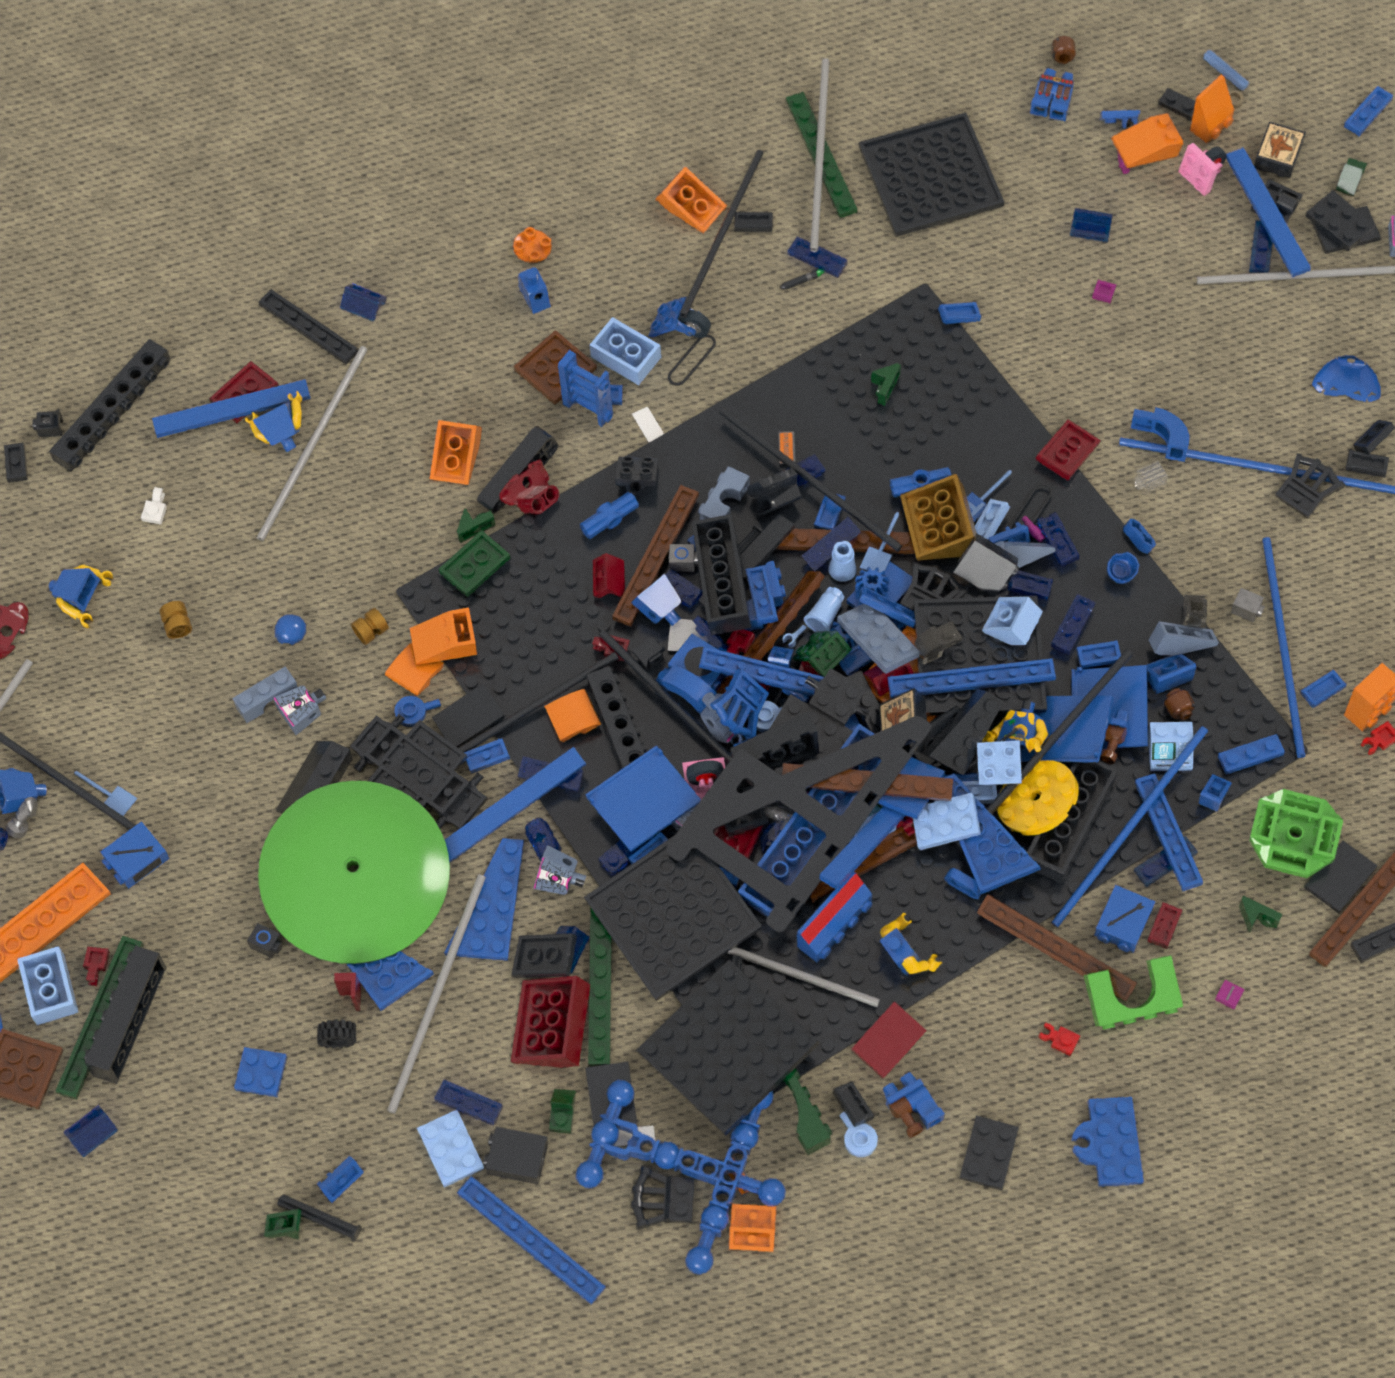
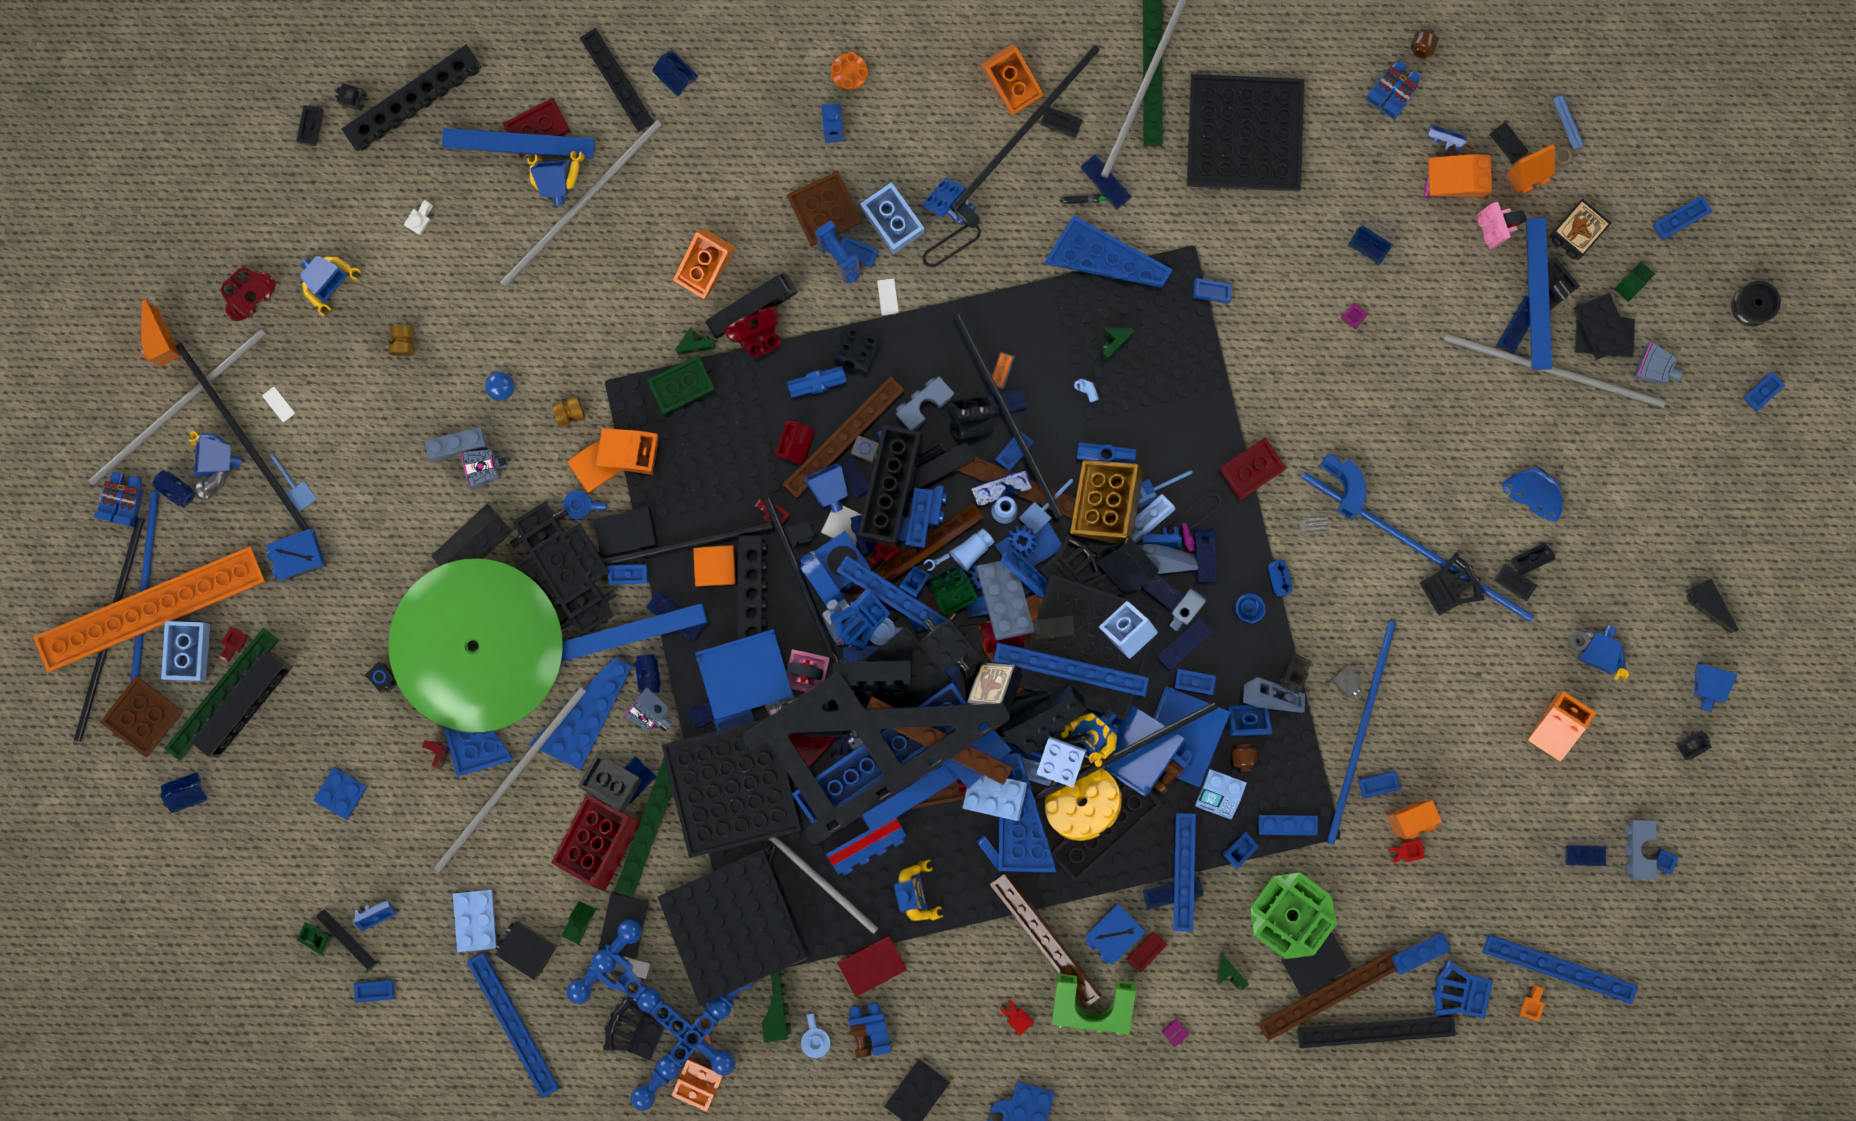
camera: 20 degrees right, 20 degrees up
(67, 724) = (278, 404): none -> white sticker
(336, 1034) = (412, 788): black tyre -> none
(367, 1259) = (374, 991): none -> blue tile
(468, 1102) = (503, 887): clear blue plate -> none
(832, 316) = (1098, 253): none -> blue wing
(853, 1104) = (820, 1010): black plate -> none
(877, 432) = (1087, 387): none -> light blue arm
(1061, 587) = (1193, 602): none -> sand blue torso
(1129, 827) = (1153, 855): blue piece -> none

